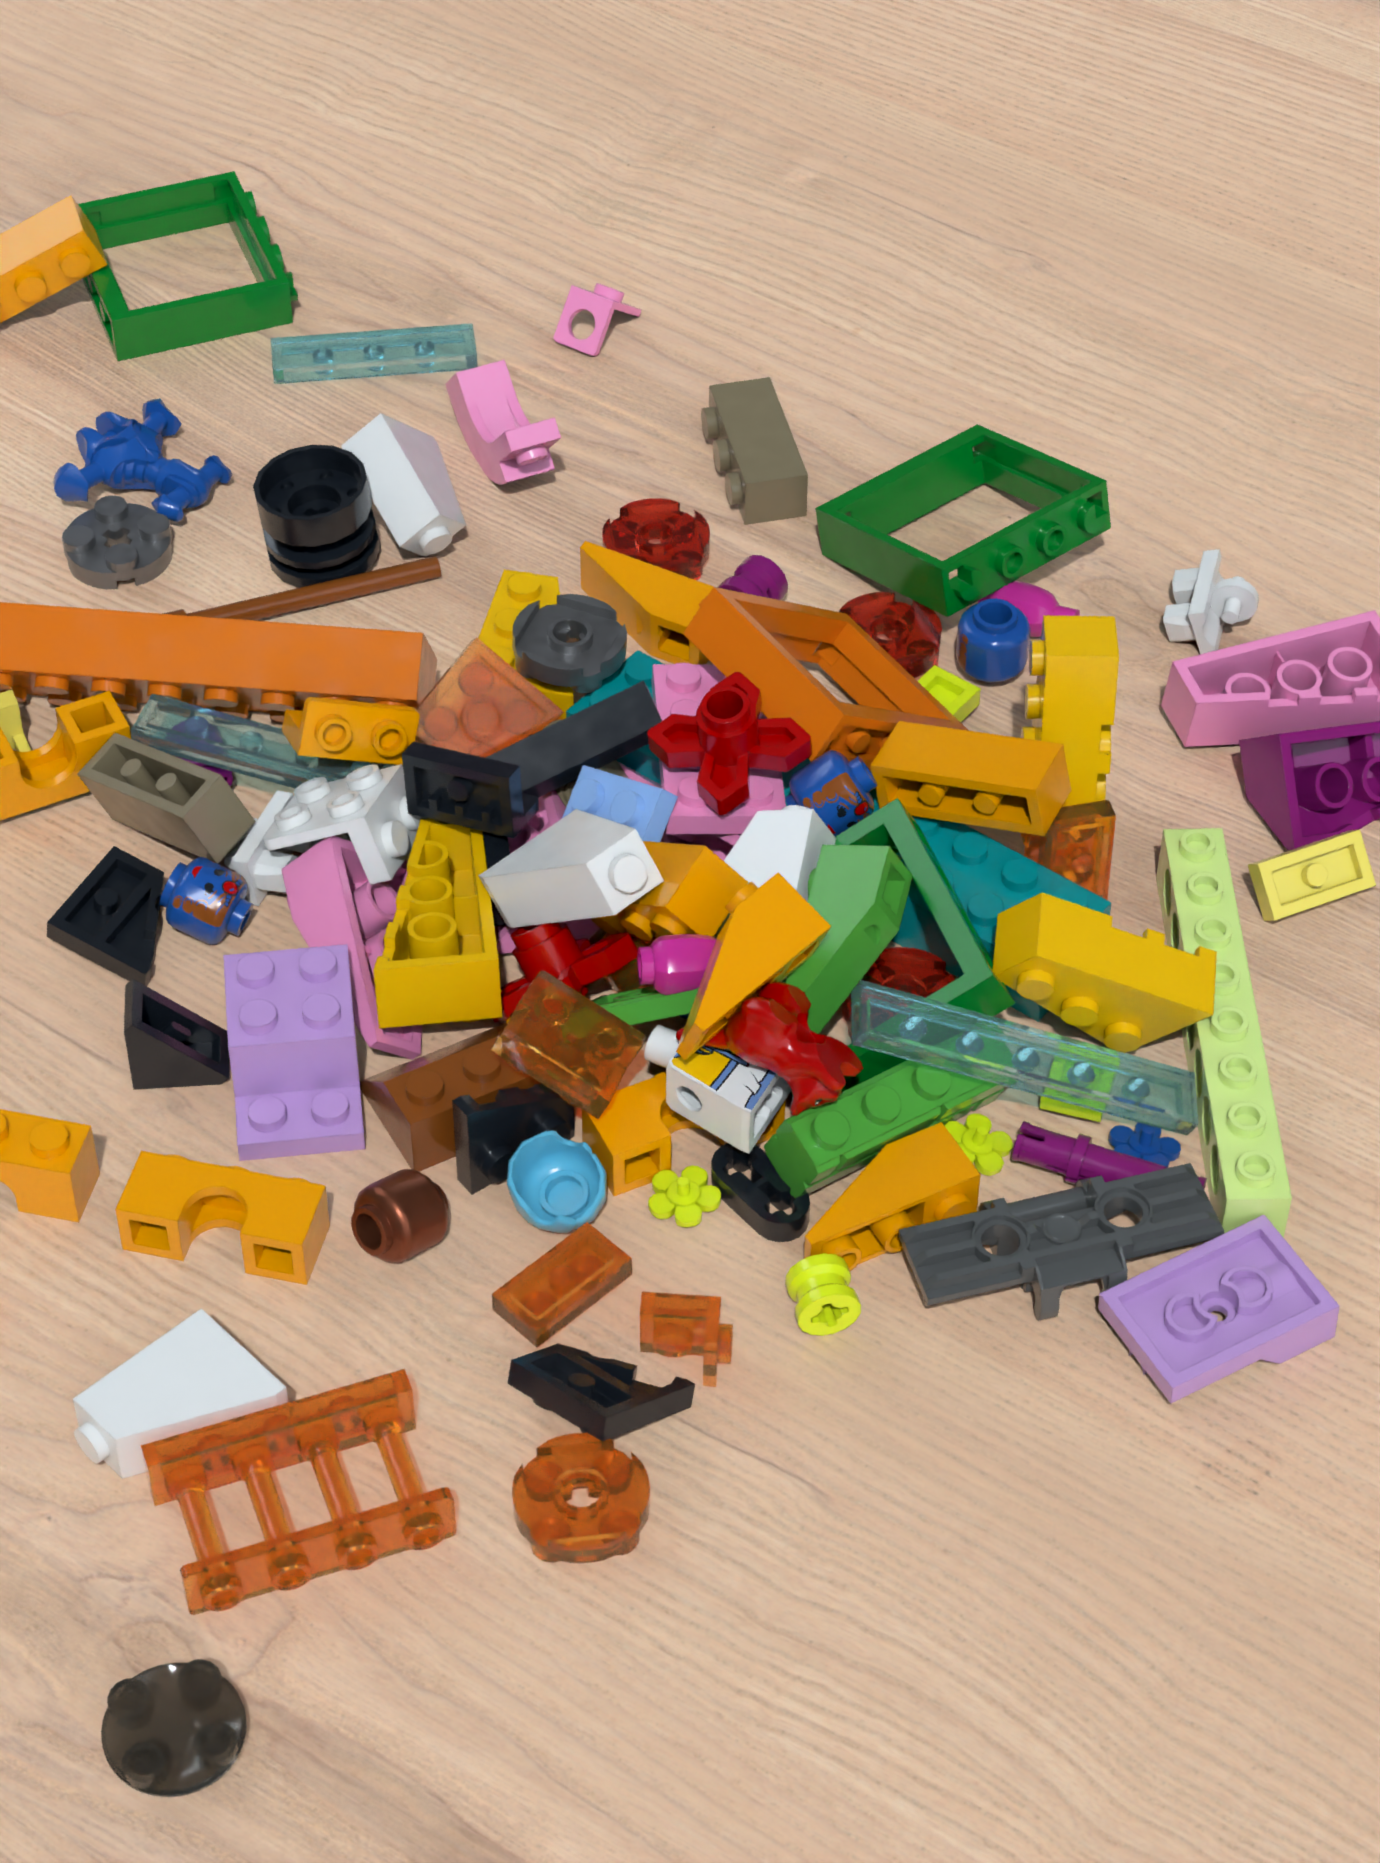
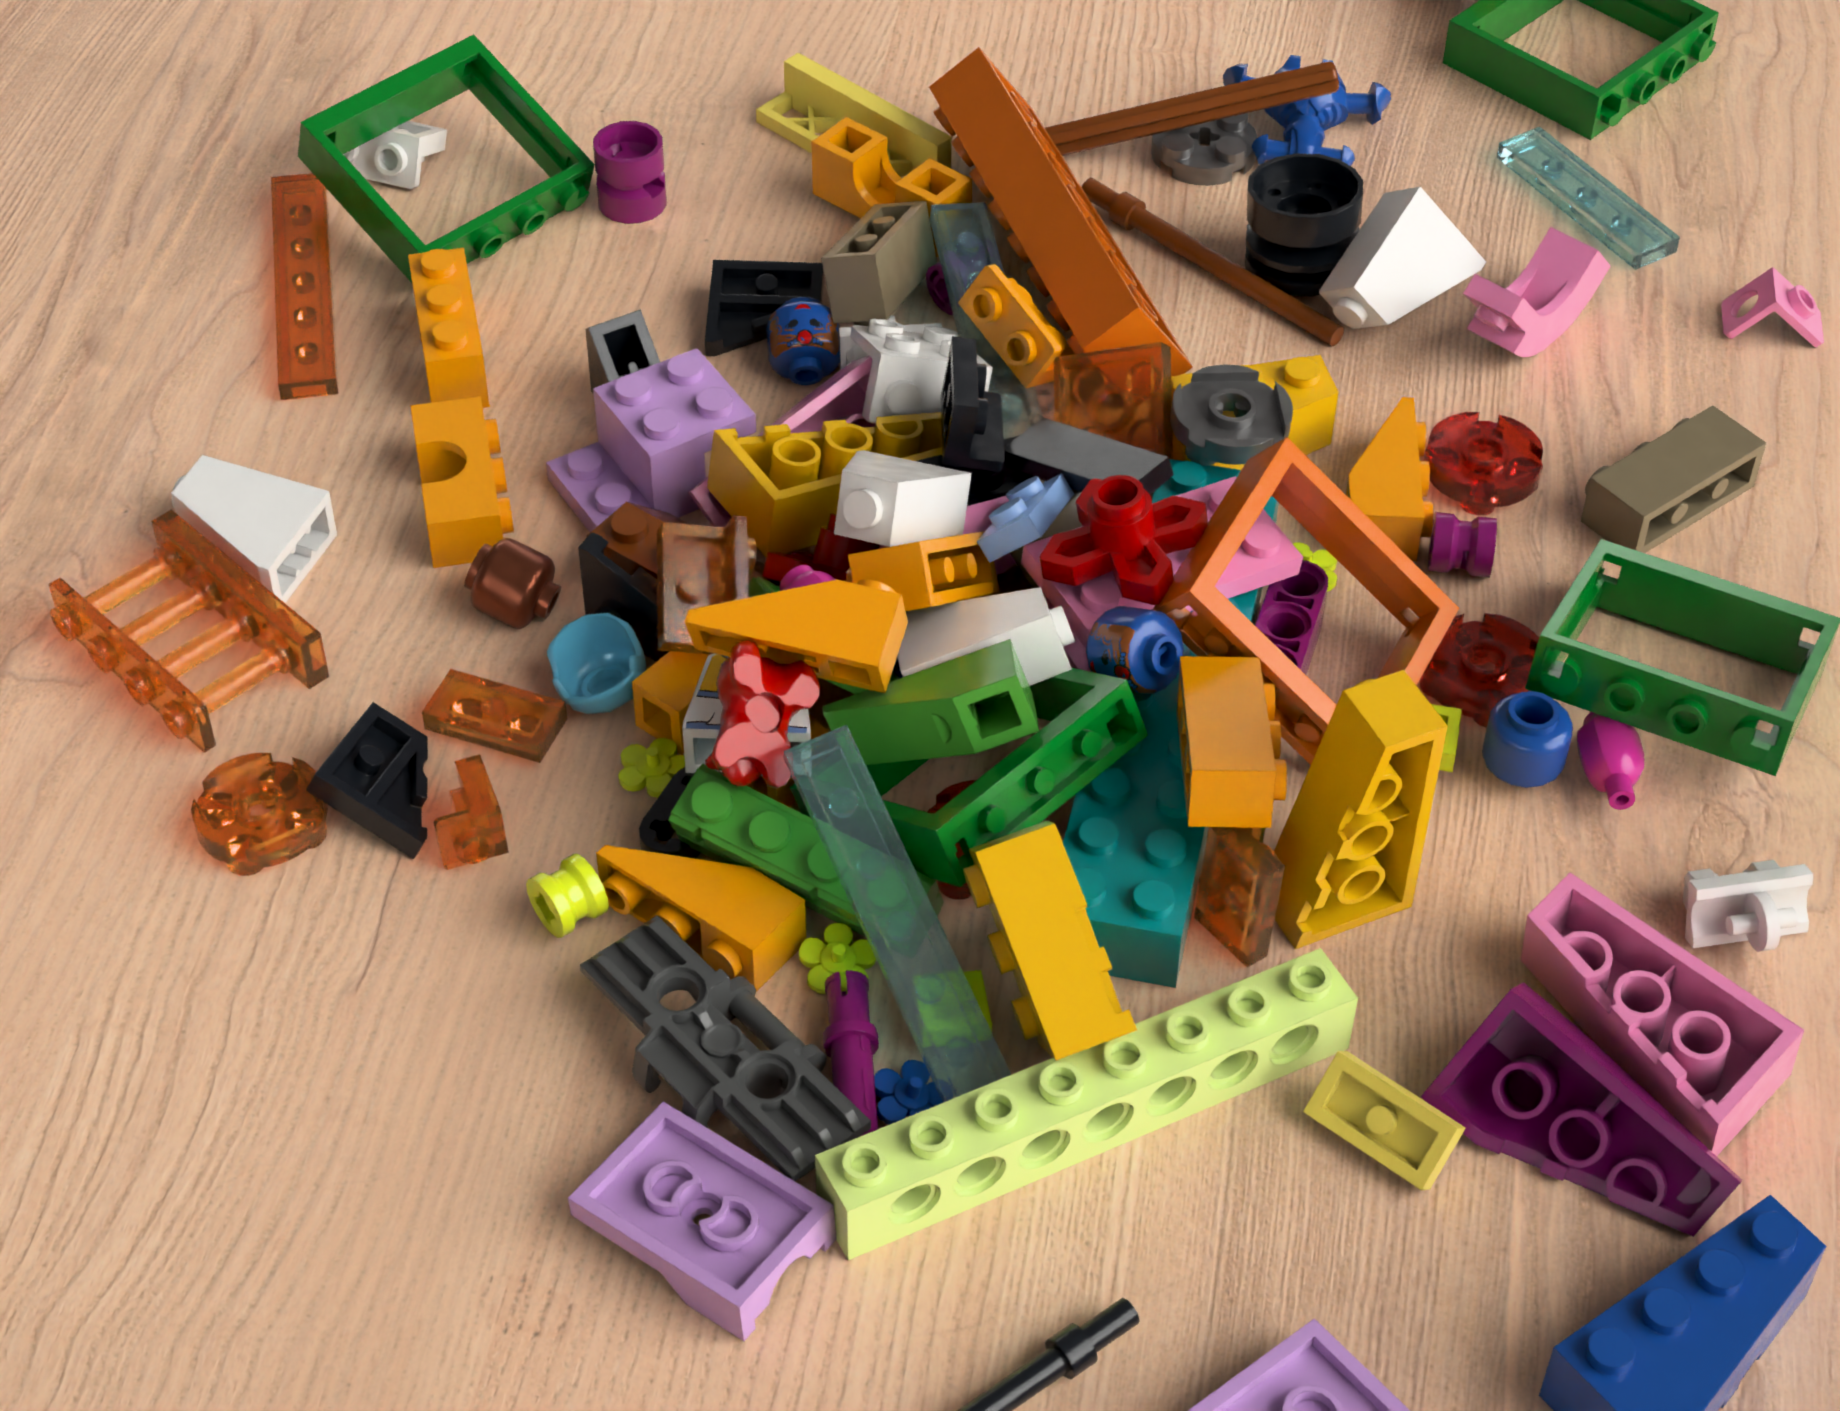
camera: 65 degrees right, 0 degrees up
(113, 505) = (1195, 108): none -> dark orange axle

